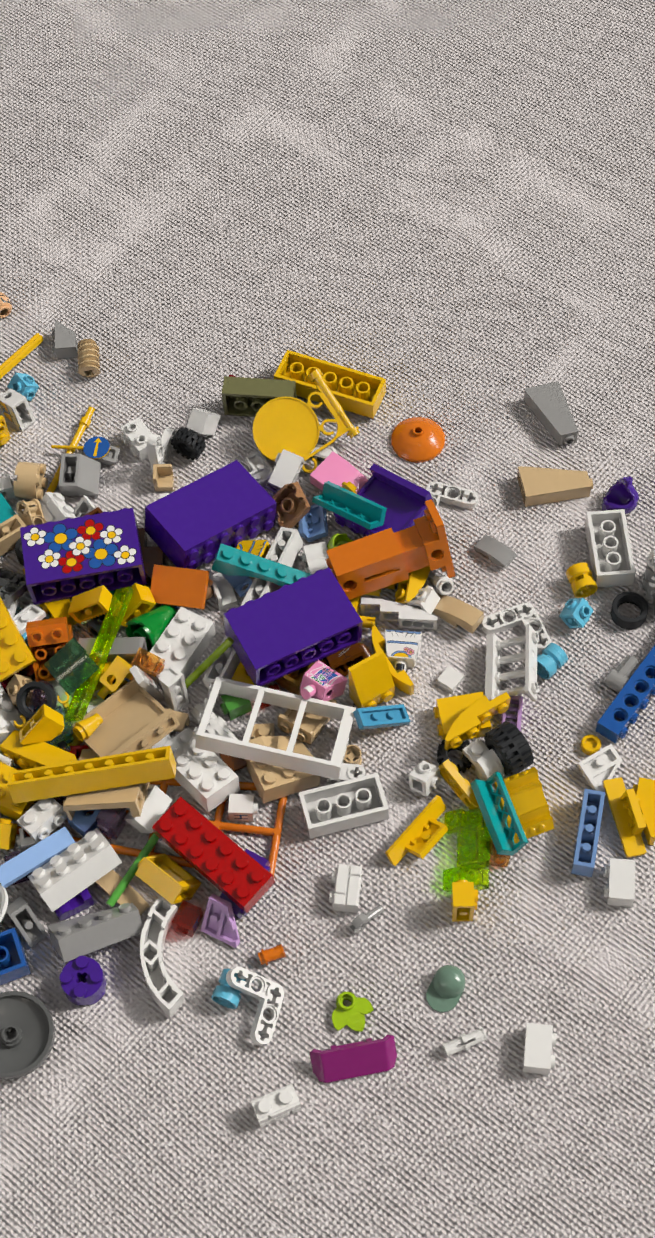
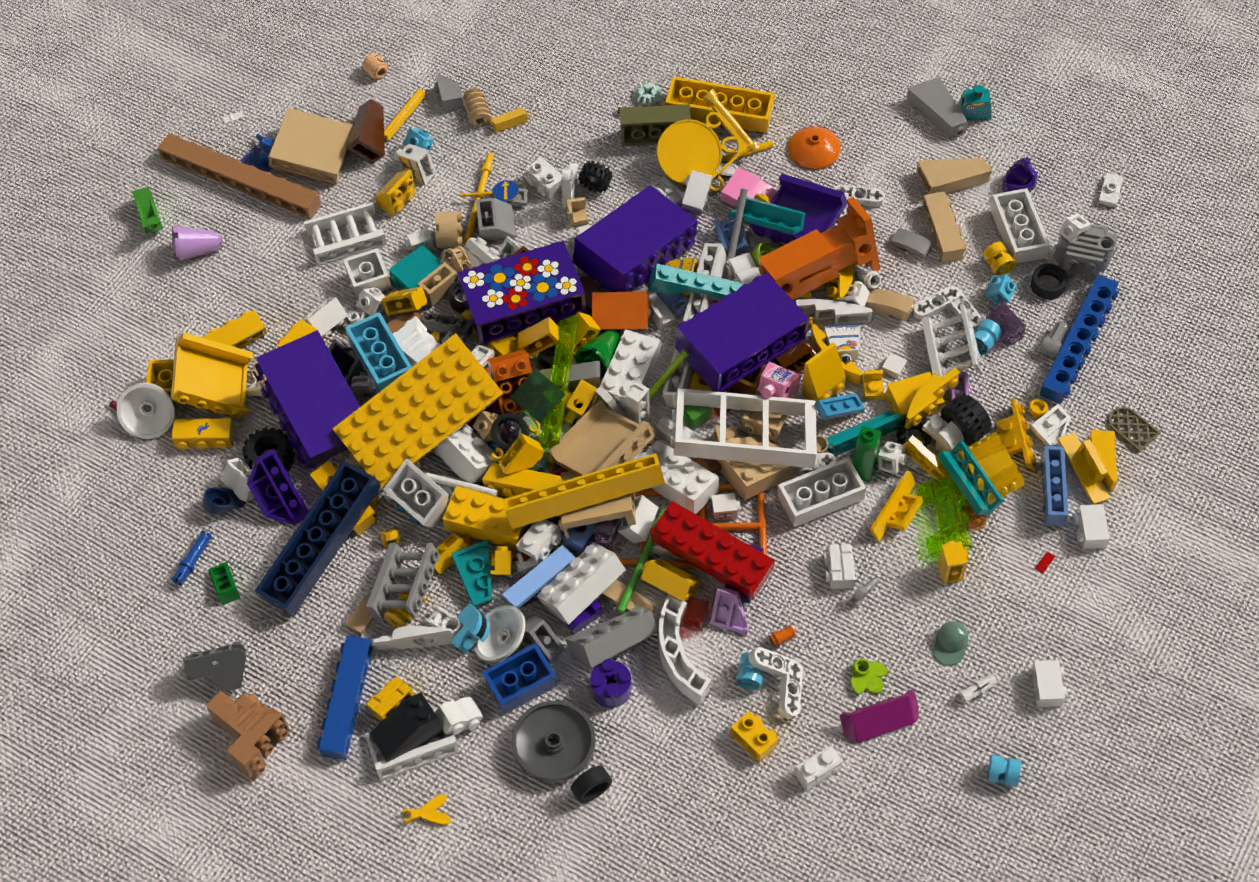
camera: 10 degrees left, 0 degrees up
(37, 1088) = (591, 784): none -> black tyre
(86, 727) = (563, 451): yellow cone -> none
(118, 374) = (509, 119): none -> yellow slope
(148, 662) = (610, 382): clear orange bracket -> none
(203, 422) = (606, 154): white brick -> none
(218, 1061) = (754, 736): none -> yellow brick
(259, 369) = (647, 99): none -> light aqua gear
(290, 505) = (711, 222): medium nougat slope -> none
(317, 511) = (737, 223): none -> light grey bar
(363, 432) = (726, 158): none -> yellow bar
(395, 771) = (866, 452): none -> green slope
(401, 747) = (847, 439): none -> teal fence
(423, 697) = (873, 384): none -> yellow bracket
(470, 1139) = (1004, 770): none -> medium azure wheel
(531, 539) = (943, 227): none -> tan brick
(559, 771) = (1015, 436): none -> yellow bracket
(564, 913) = (1045, 562): none -> red piece
(575, 649) = (1011, 325): none -> clear purple brick
(590, 414) = (975, 103): none -> teal torso

